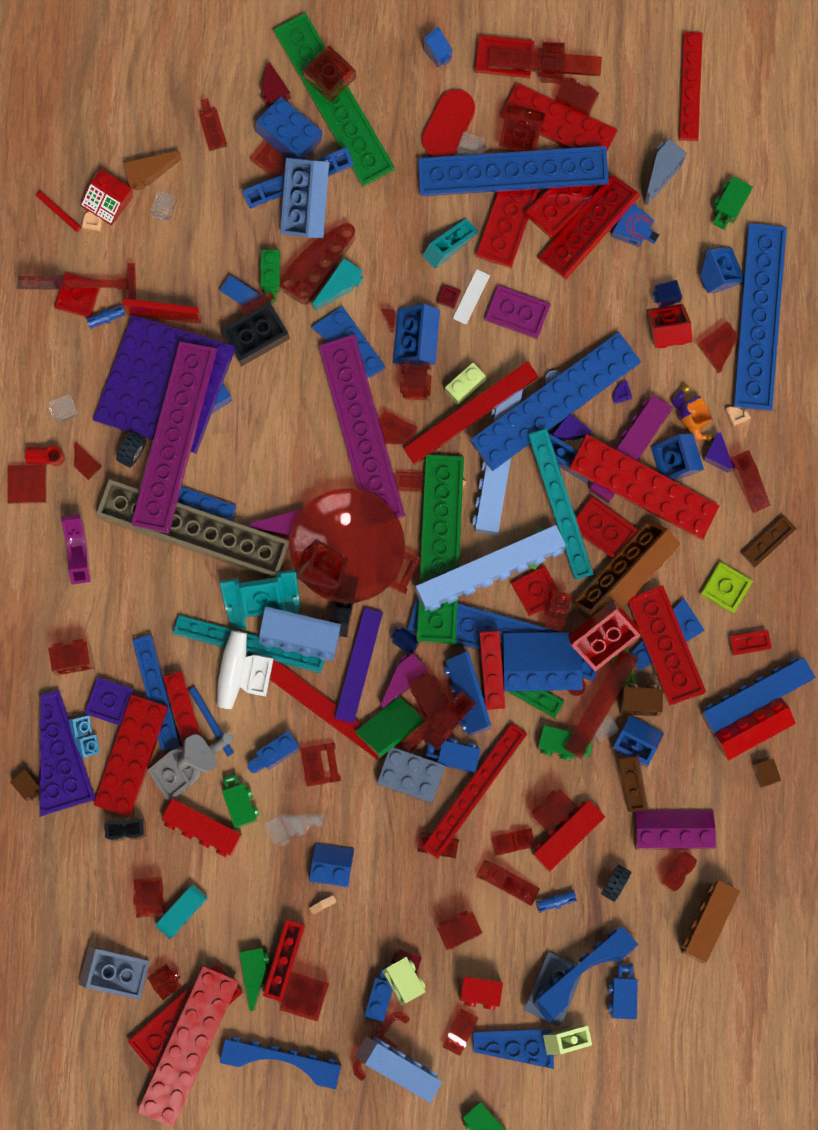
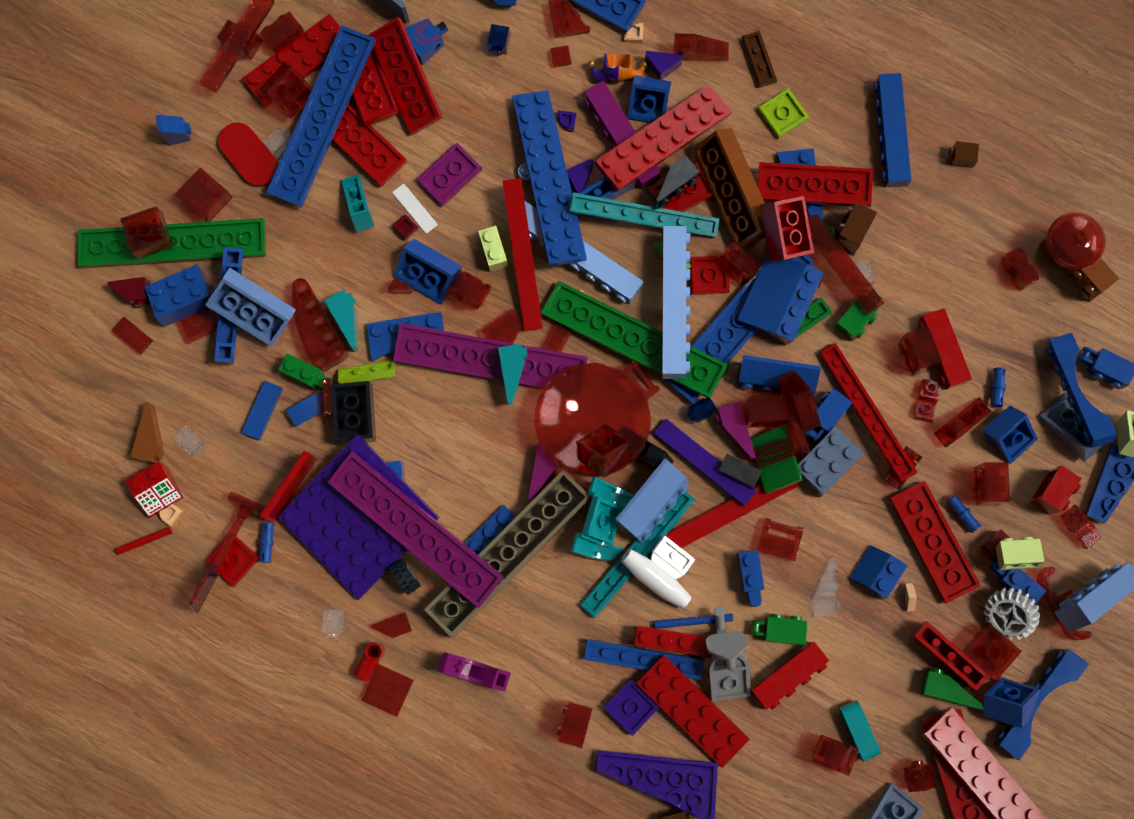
camera: 60 degrees left, 0 degrees up
(82, 734) = (657, 747): dark azure slope -> none
(118, 830) = (758, 754): black brick -> none
(212, 126) = (138, 362): clear red hinge -> none
(221, 254) = (262, 410): none -> blue tile
(234, 108) = (132, 335): none -> clear red tile
(267, 1032) = (1010, 702): none -> blue slope
(297, 328) = (367, 372): none -> lime plate
(348, 1000) = (1024, 613): none -> white gear
(363, 451) = (512, 364): none -> teal slope
(363, 699) = (739, 471): none -> pearl dark grey tile
(383, 905) = (935, 542): none -> red plate
(386, 712) = (760, 456): none -> clear red tile
(389, 105) = (203, 195): none -> clear red brick
(422, 920) = (963, 513): none -> blue pin
(483, 54) = (202, 94): red plate -> none
(492, 669) = (765, 343): red brick -> none
(516, 931) = (1010, 434): none -> blue slope
(610, 517) = (680, 175): none -> black slope
(616, 883) = (1007, 326): black wheel -> none
(633, 783) = (924, 270): reddish brown tile -> none
(638, 739) = (888, 249): blue slope -> none
(670, 326) = (528, 51): red slope -> none
(675, 829) = (980, 255): magenta slope -> none
(681, 358) = (560, 56): none -> clear red tile
(711, 914) = (1067, 248): none -> clear red dish
(750, 642) = (842, 115): red plate -> none
(754, 728) = (922, 145): red brick -> none

